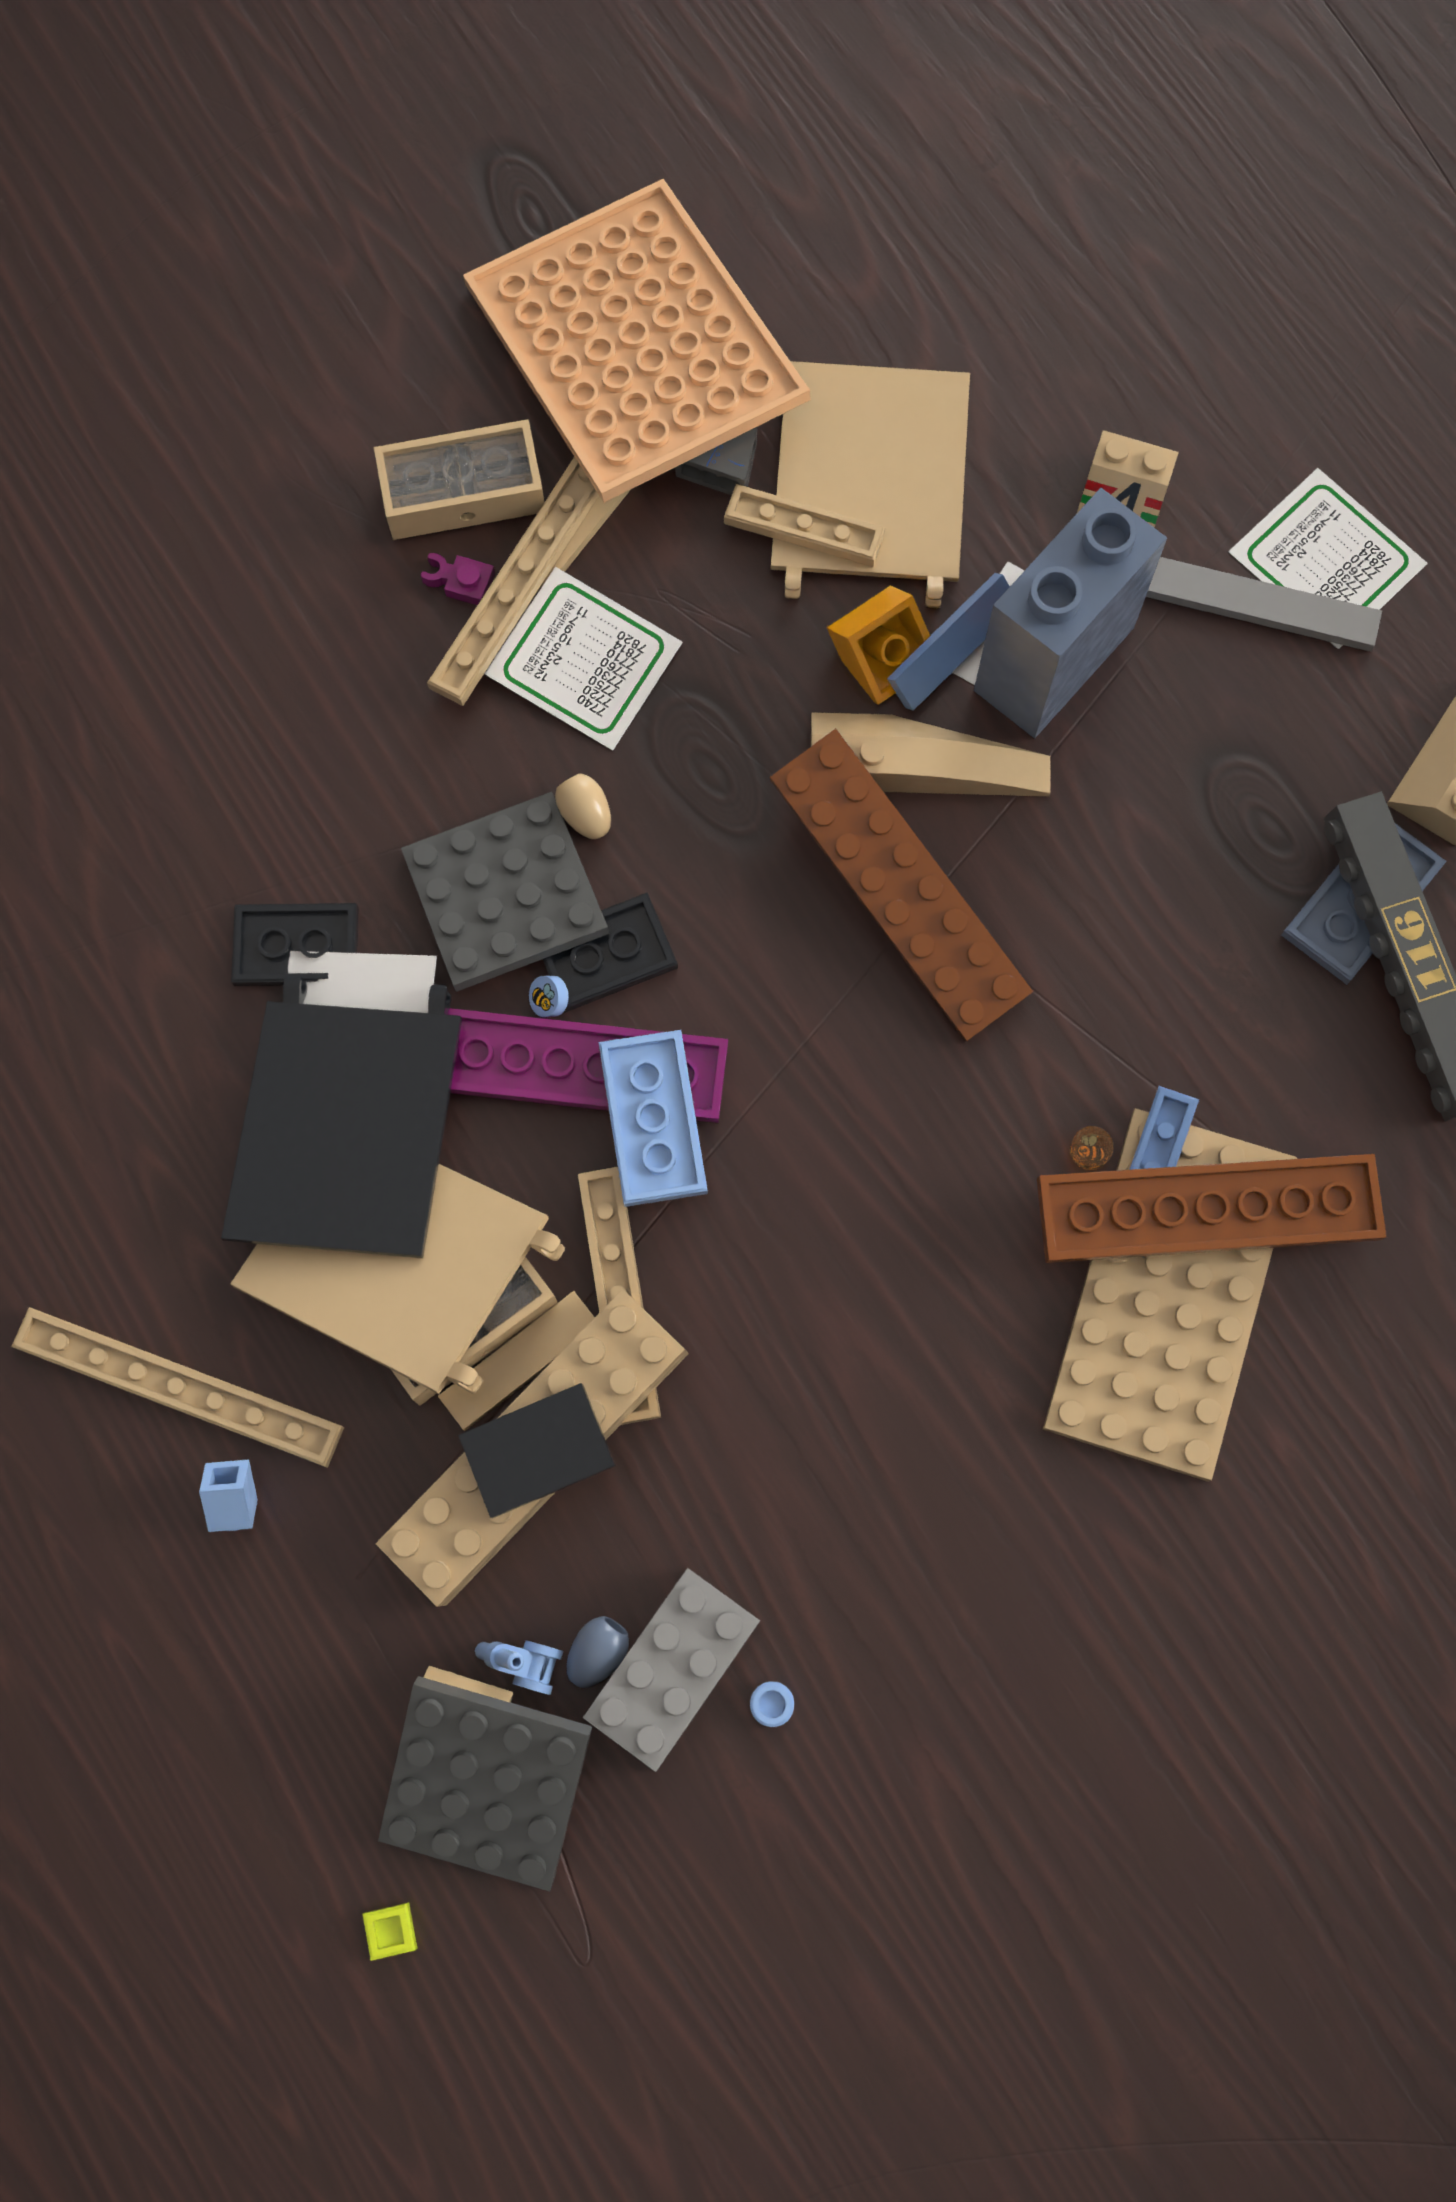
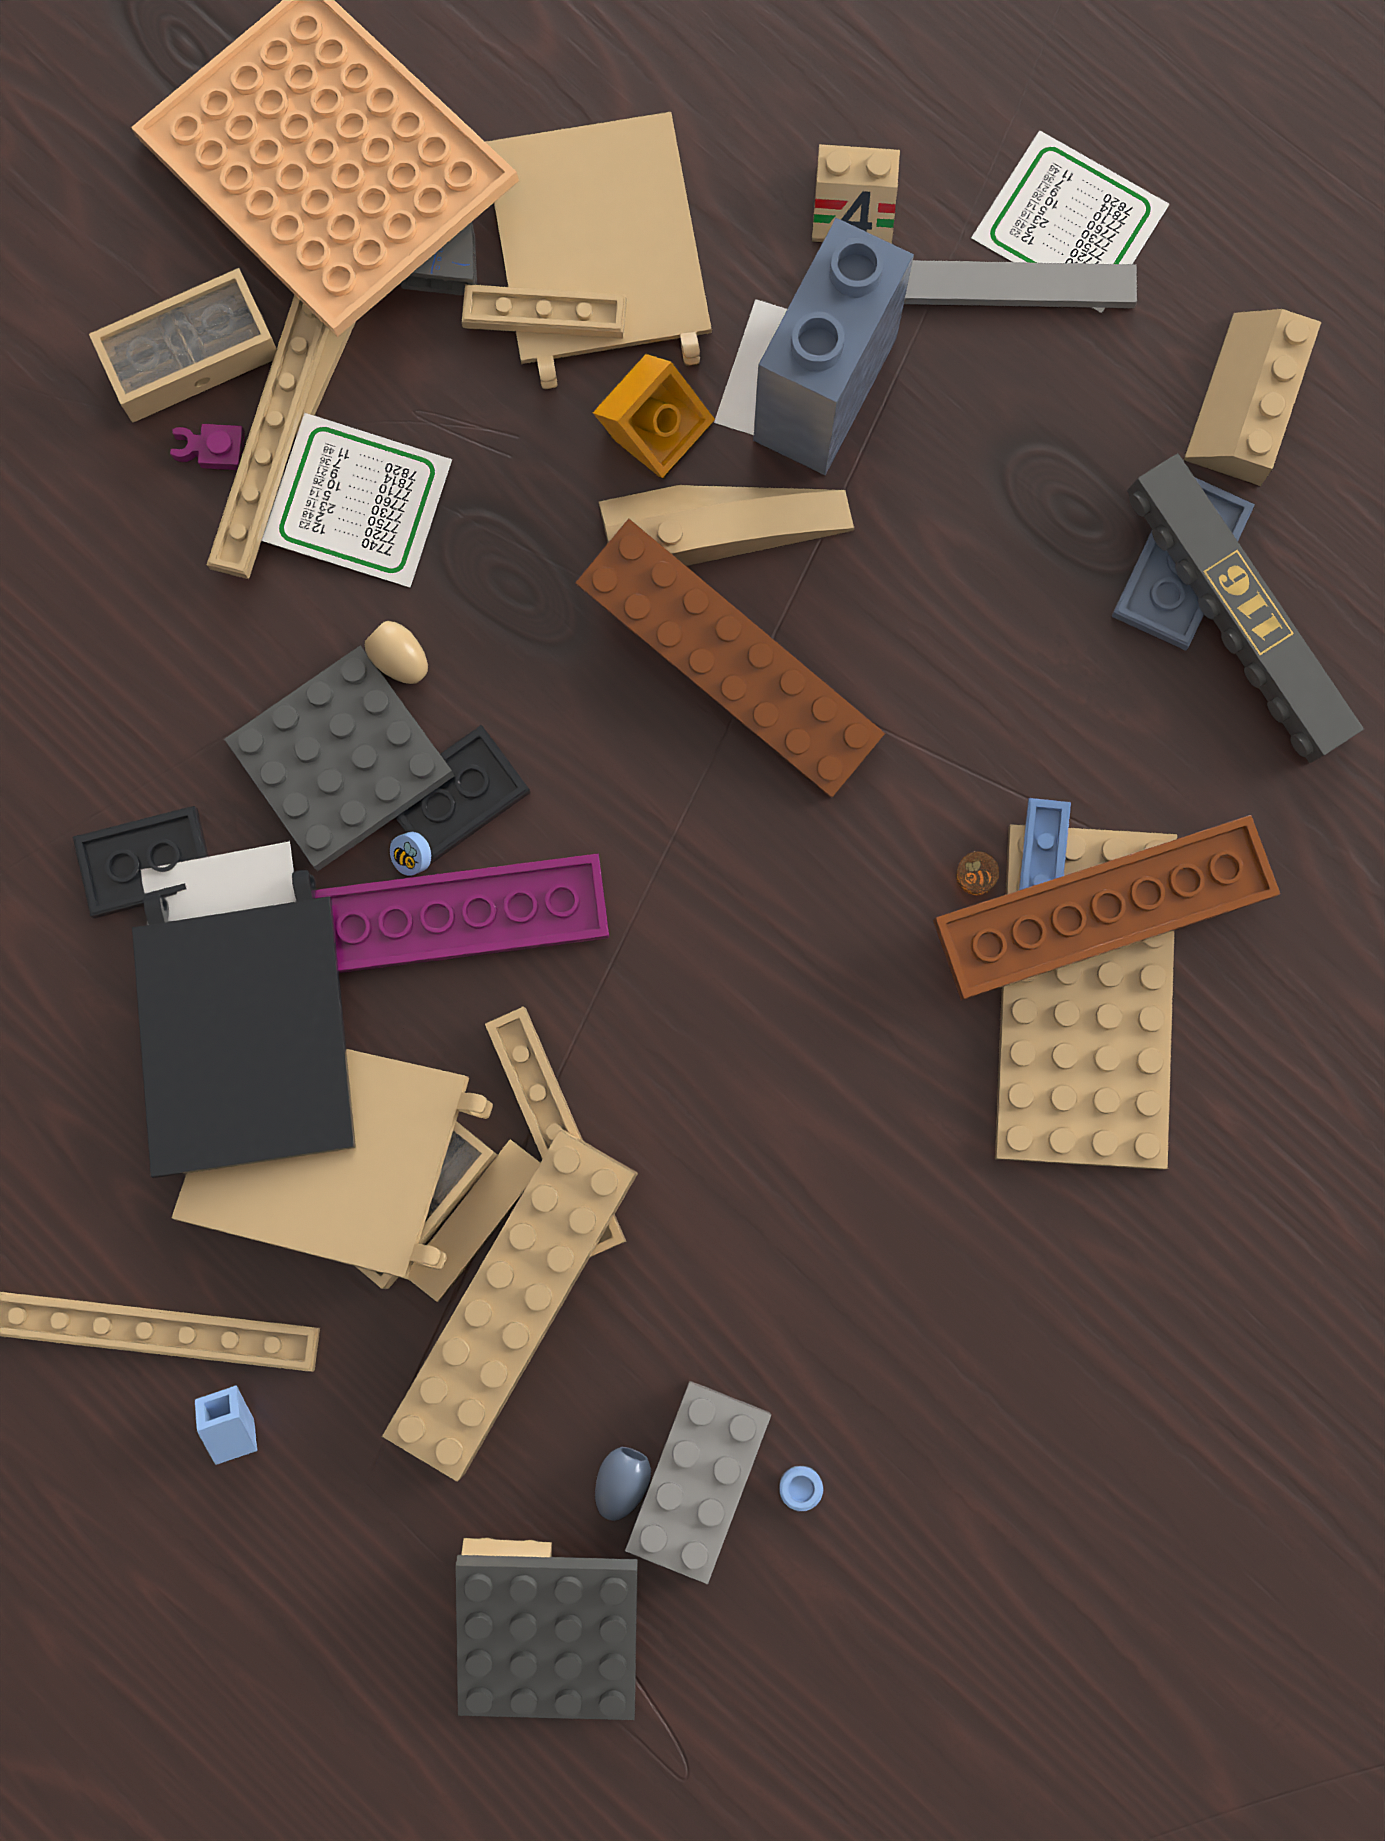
camera: 15 degrees left, 5 degrees up
(389, 1931) = (491, 1796): neon yellow tile -> none
(530, 1664) = (560, 1512): light blue piece -> none
(536, 1450) = (516, 1309): black tile -> none
(652, 1118) = (544, 951): light blue tile -> none
(947, 645) = (720, 398): medium blue tile -> none

